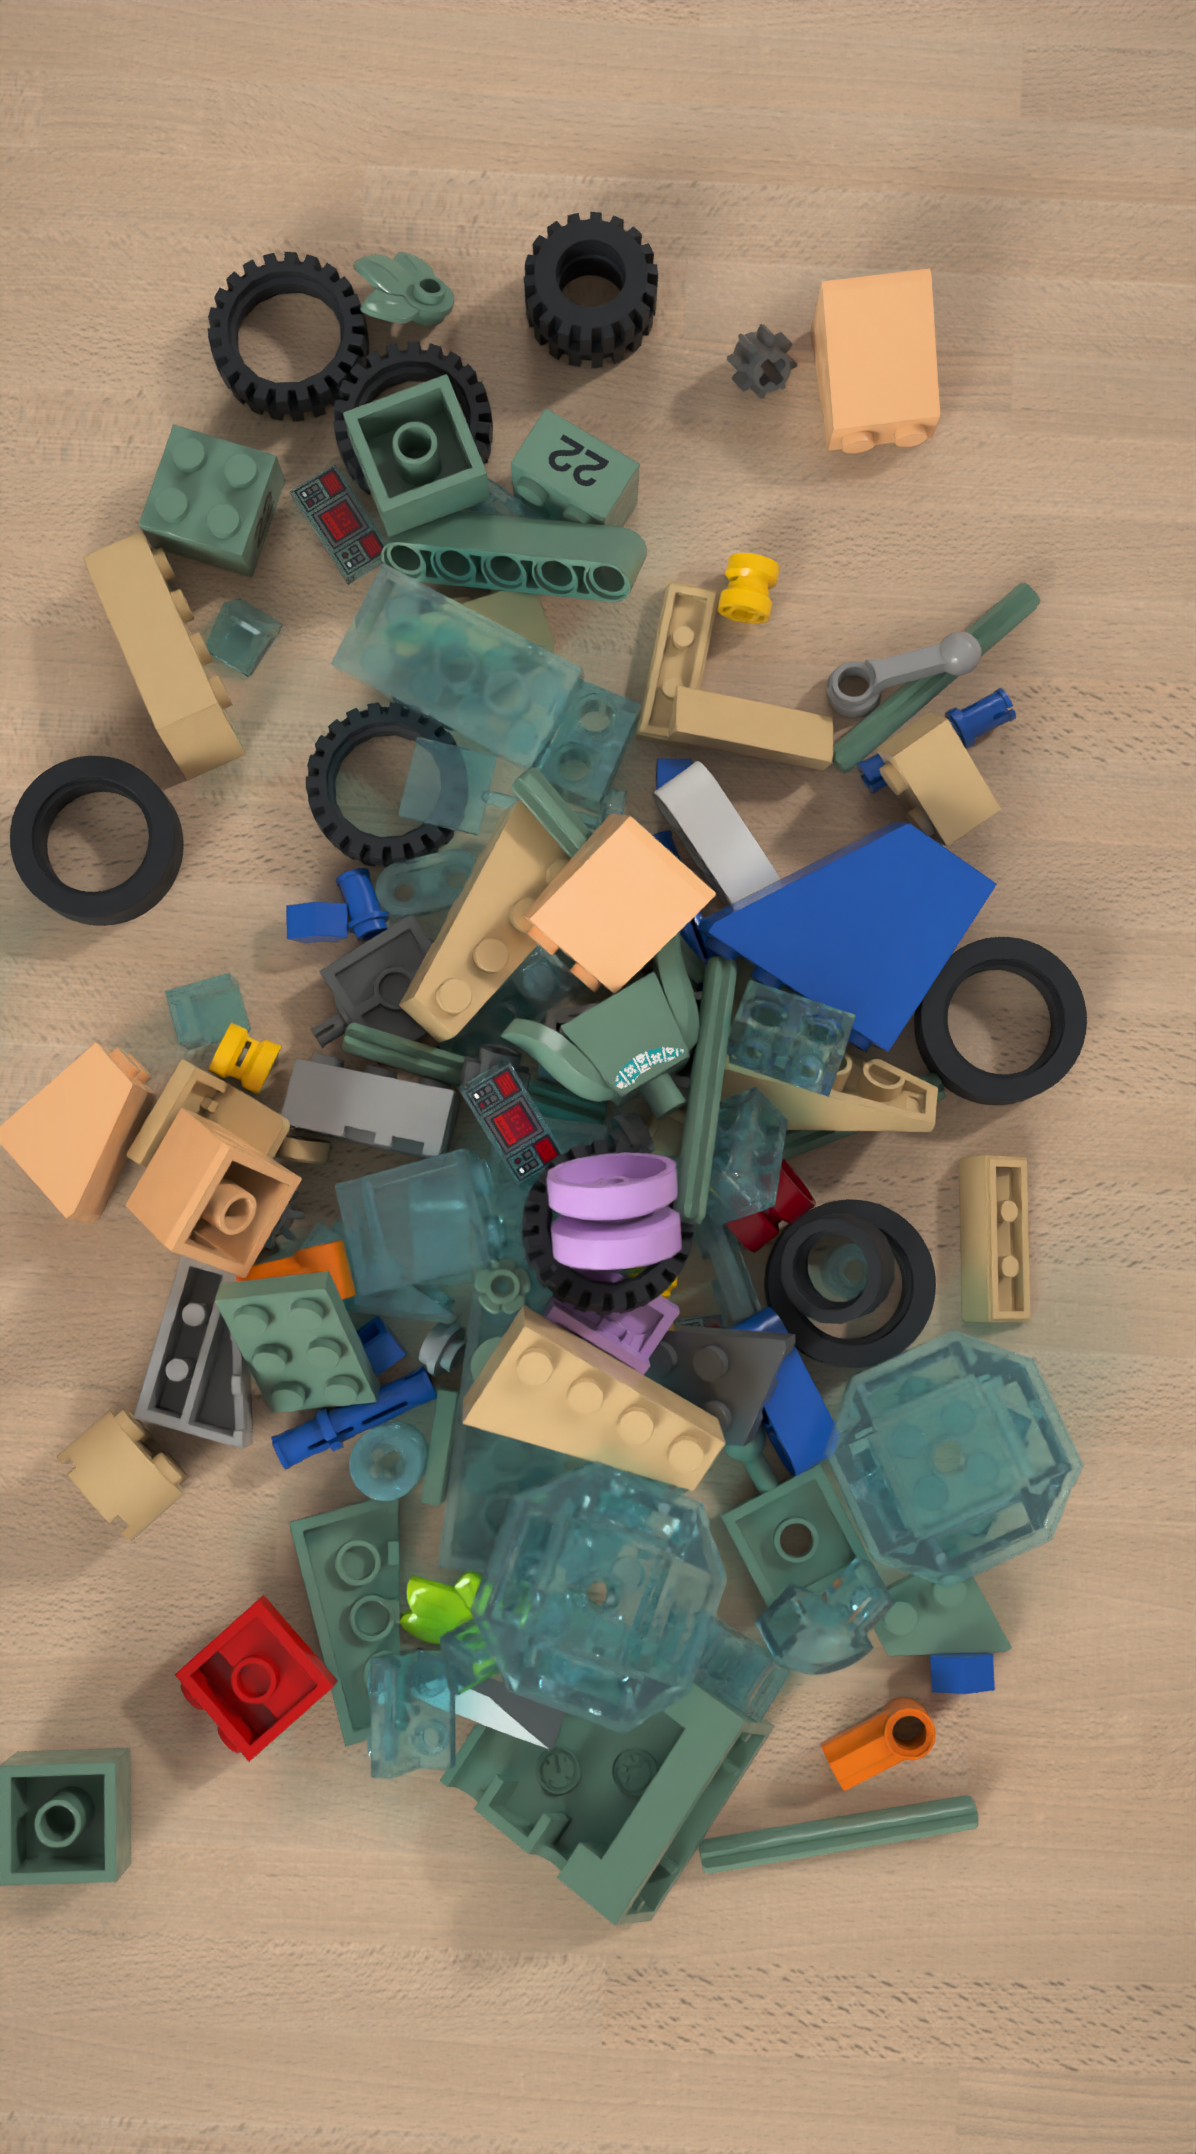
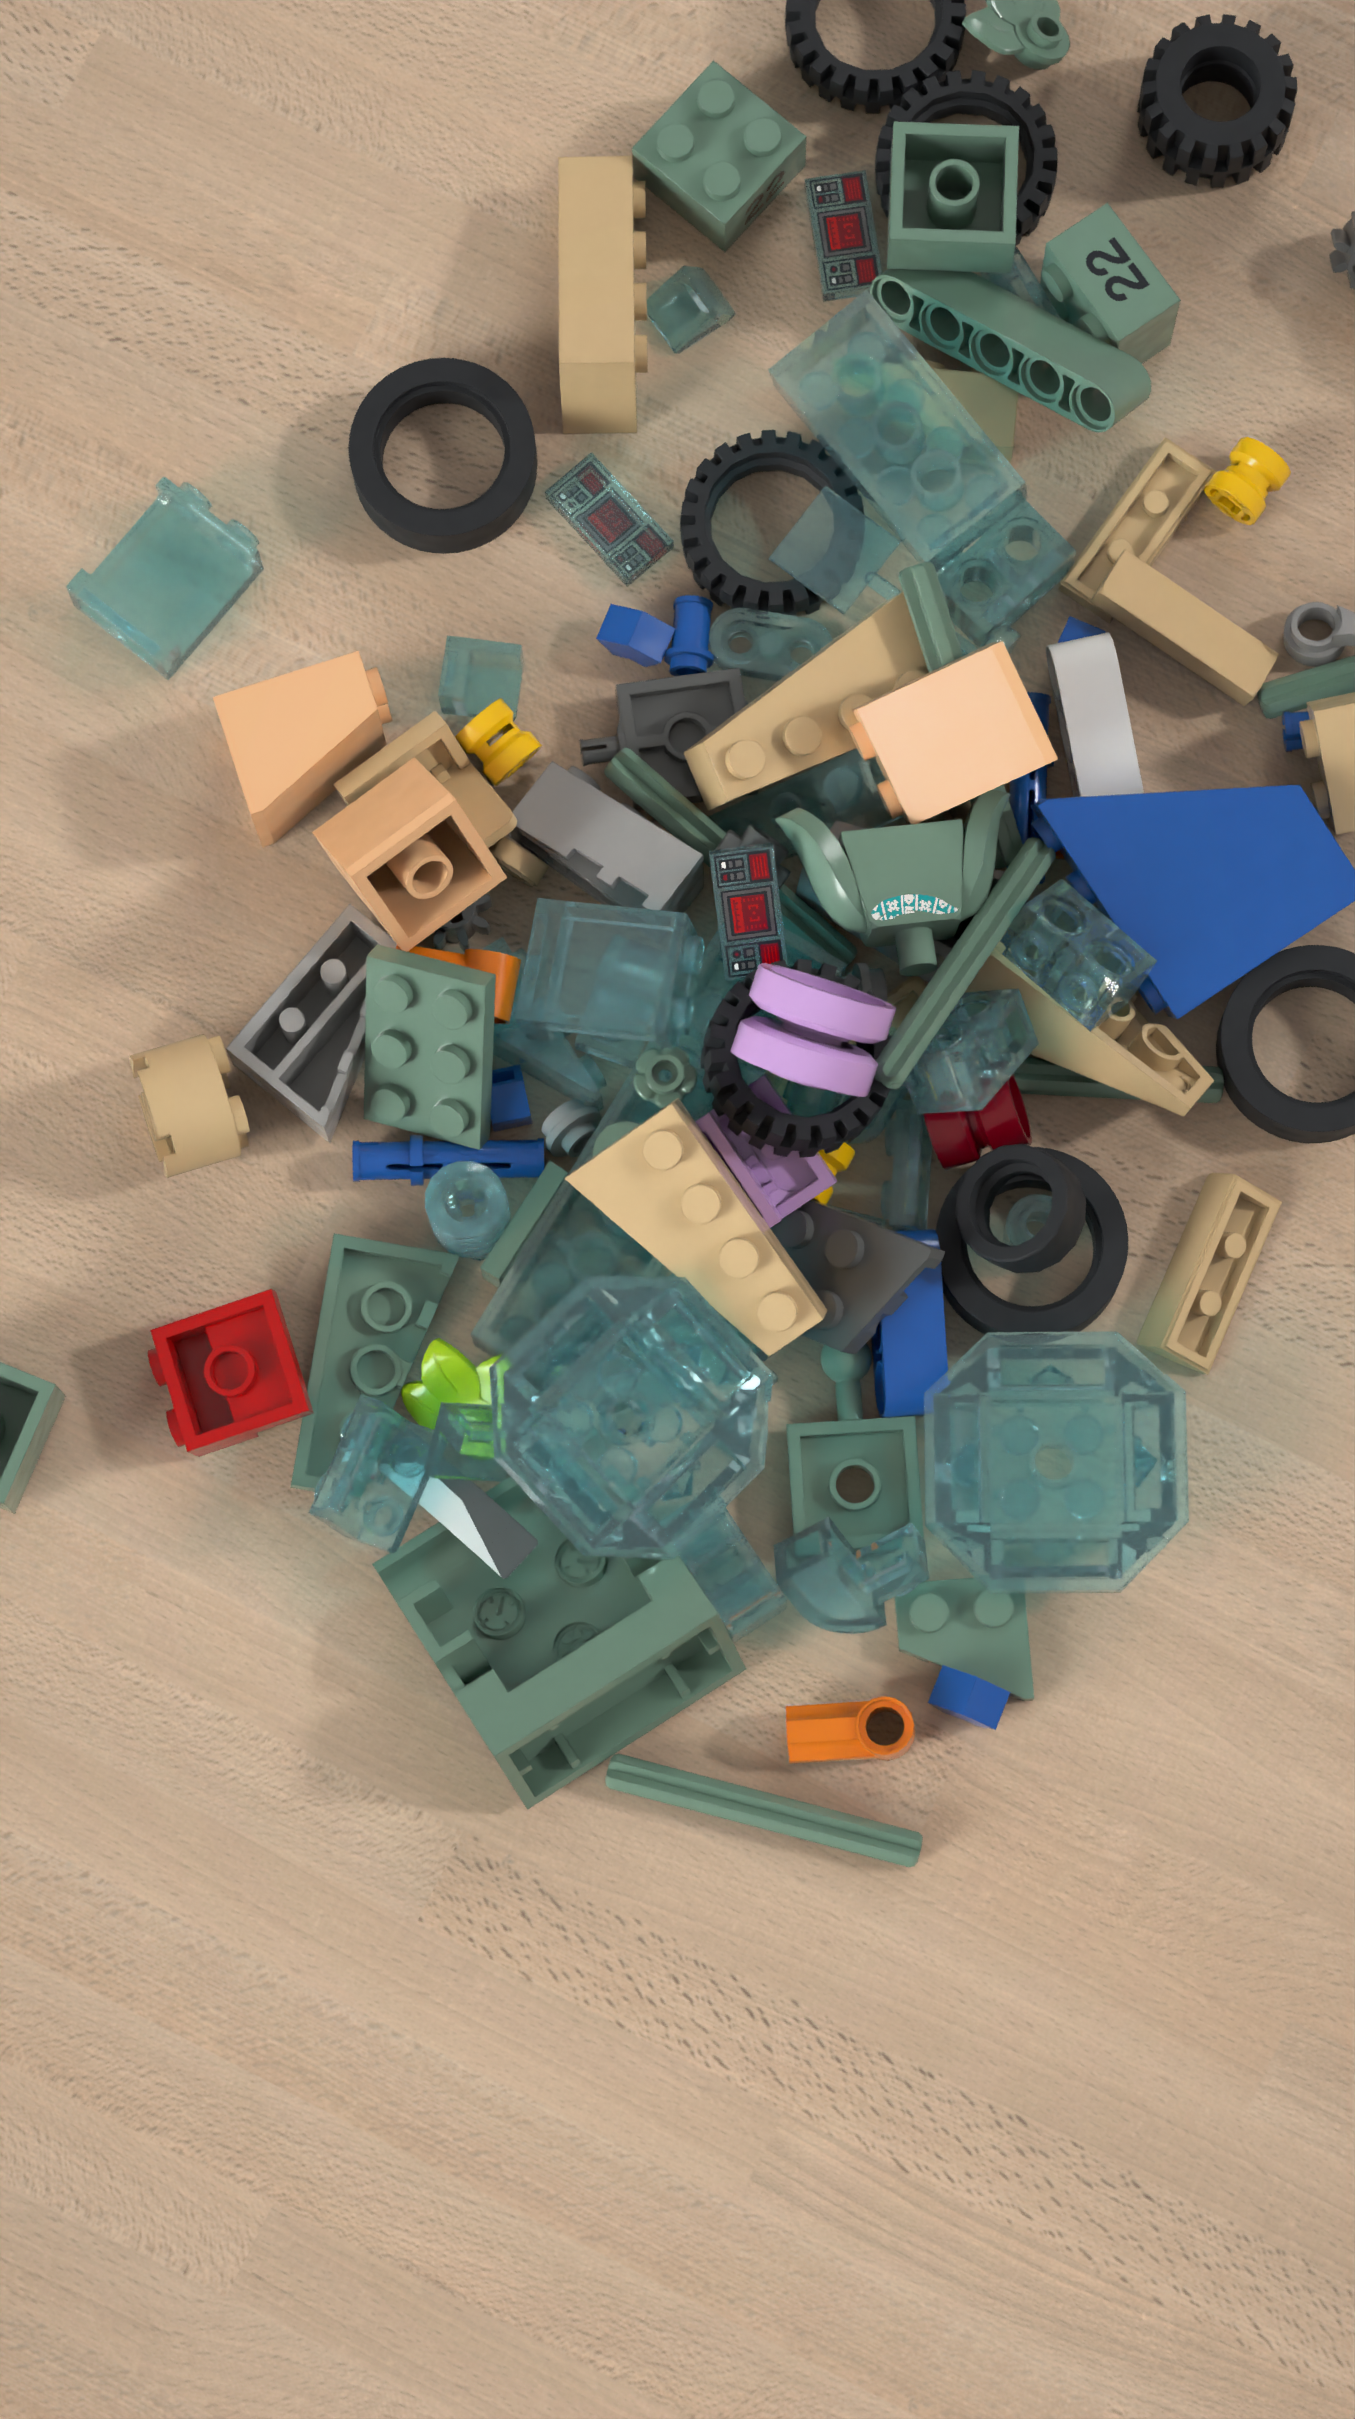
camera: 30 degrees right, 5 degrees down
(254, 835) = (609, 519): none -> clear light blue tile

